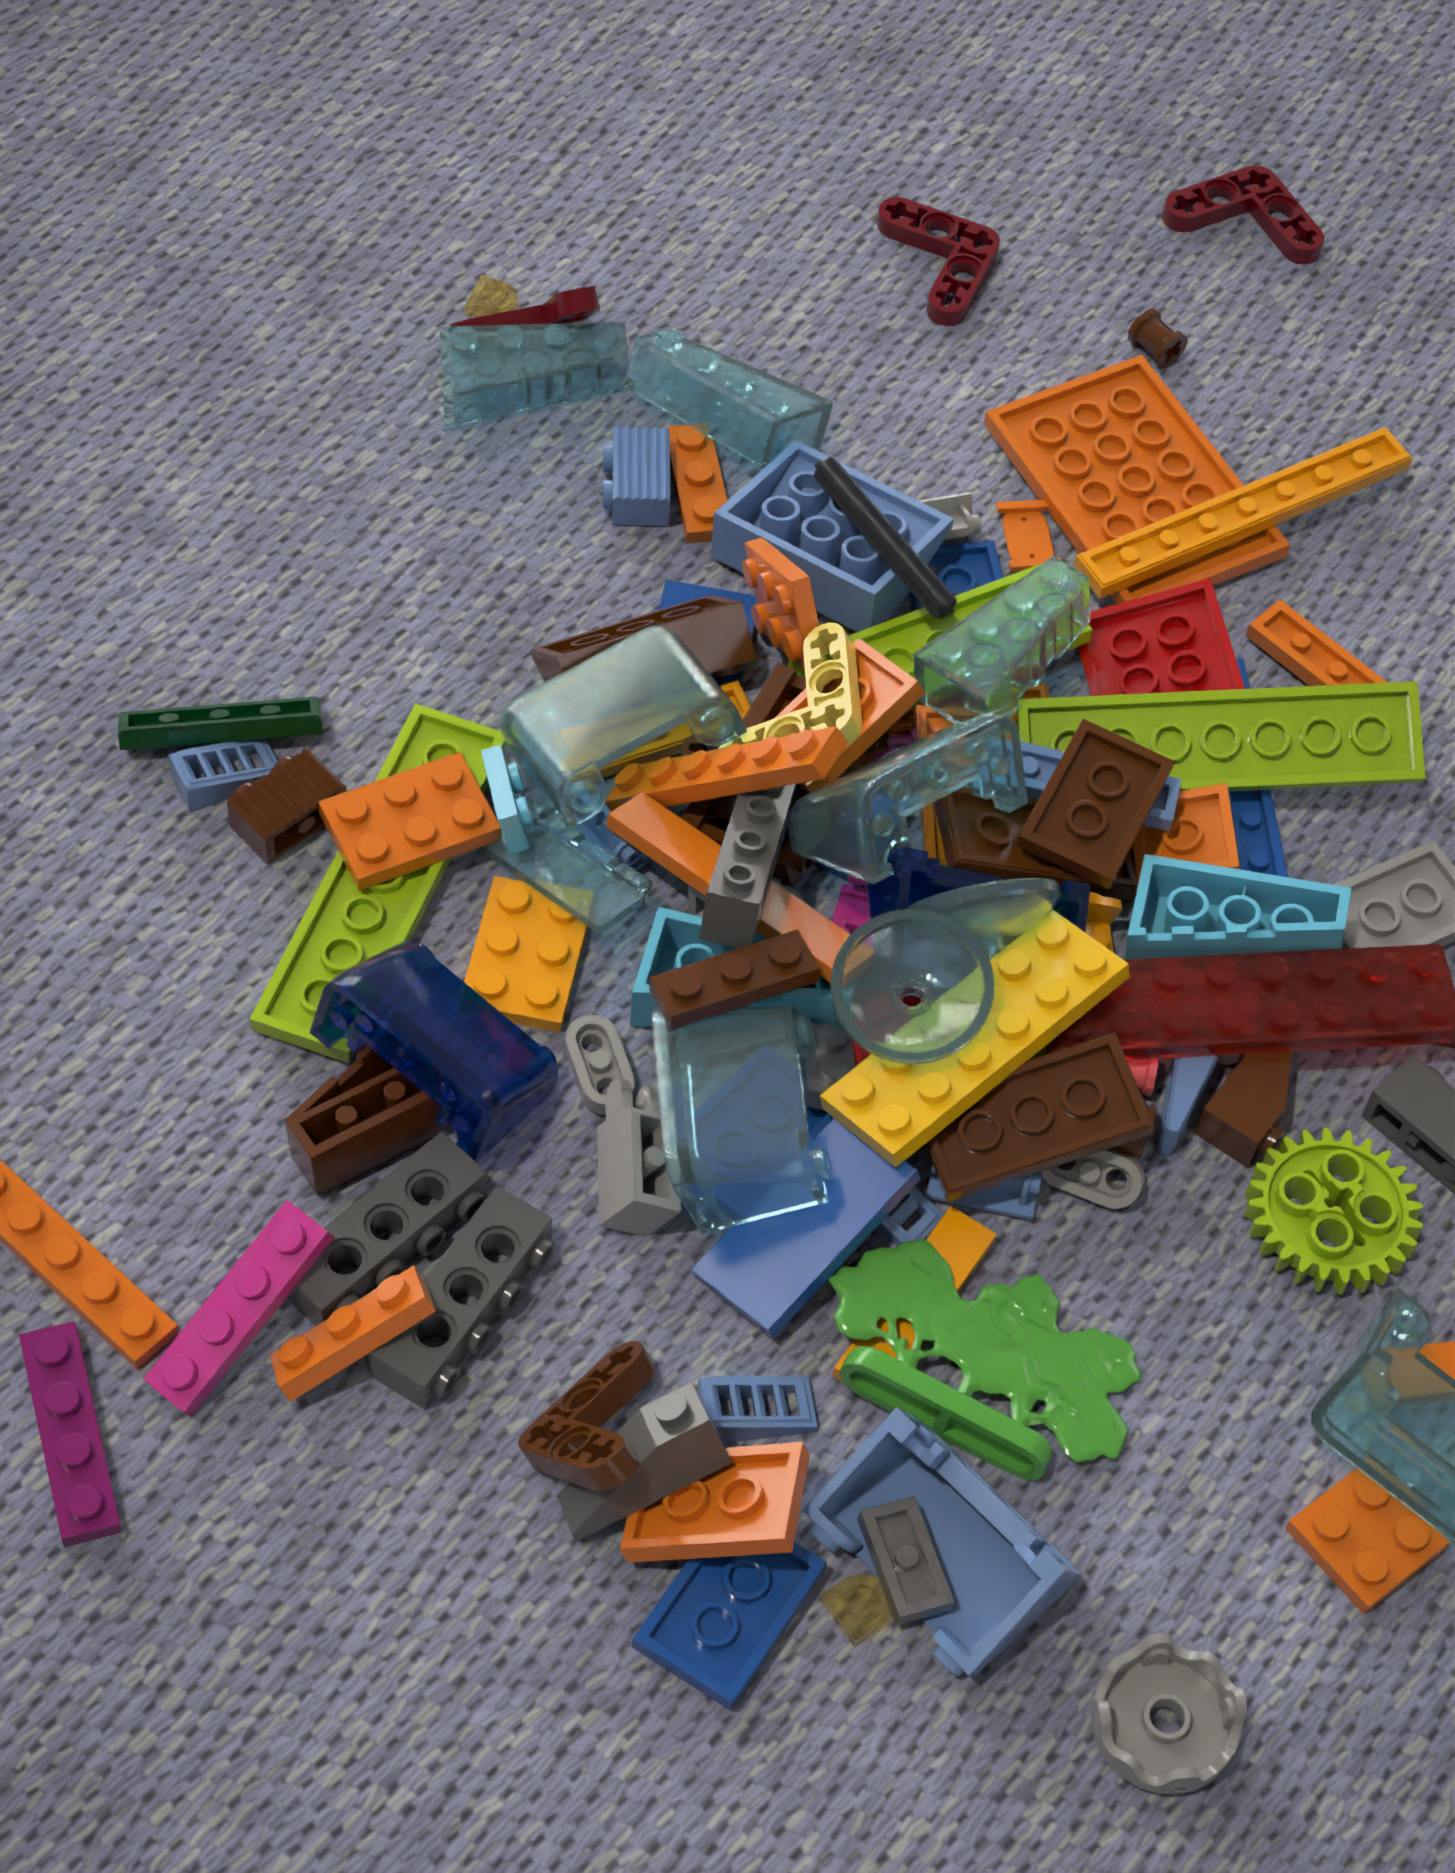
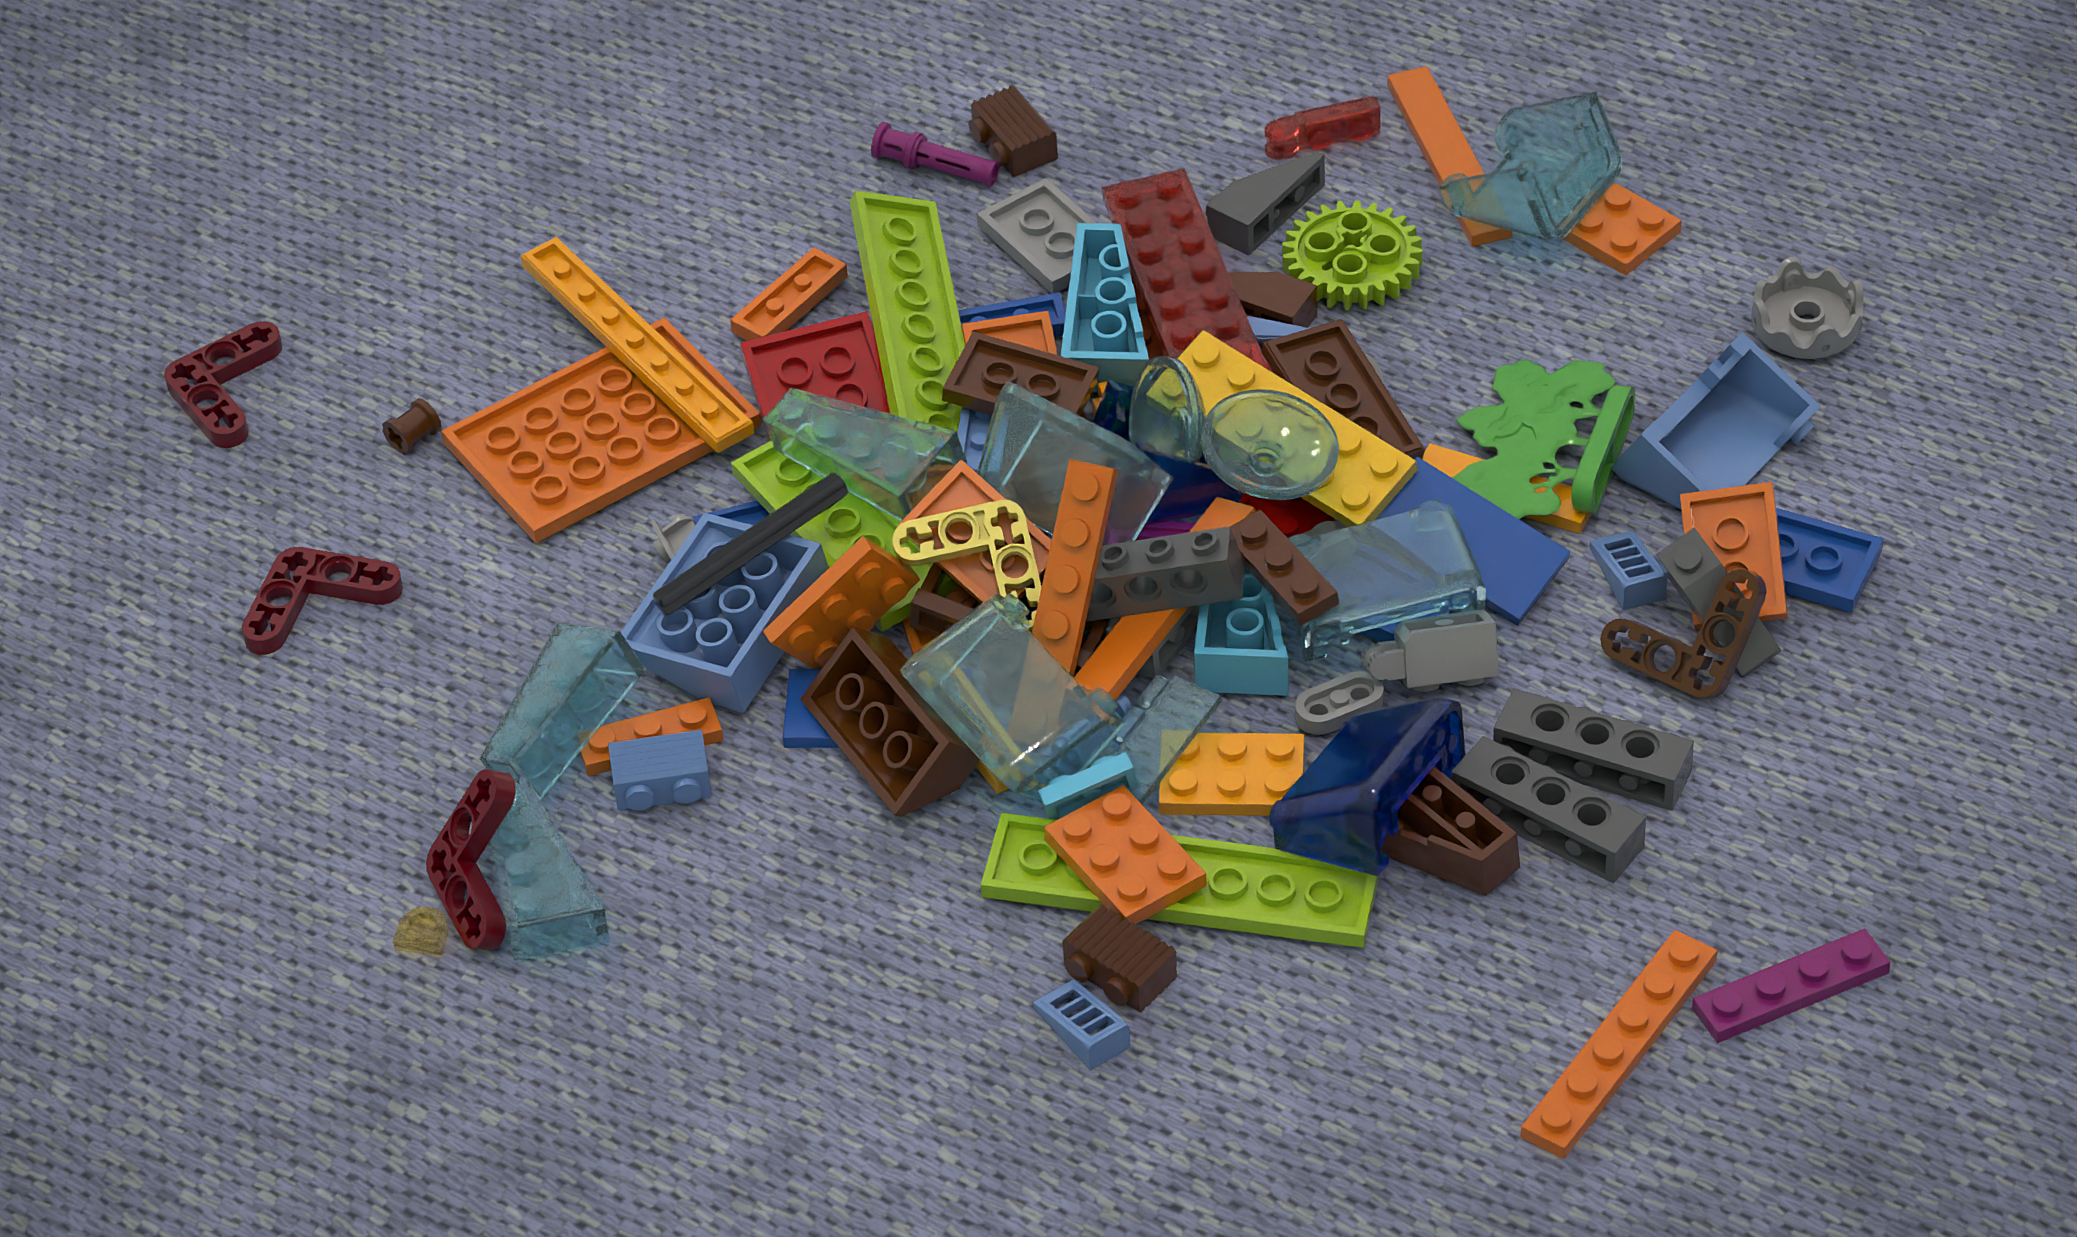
camera: 90 degrees left, 10 degrees down
(219, 723) = (1031, 1032): dark green tile -> none
(238, 1308) = (1657, 874): dark pink plate -> none
(351, 1333) = (1658, 797): orange plate -> none
(857, 1607) = (1786, 488): clear yellow tile -> none
(905, 1560) = (1736, 457): flat silver plate -> none
(1026, 533) = (675, 499): orange piece -> none

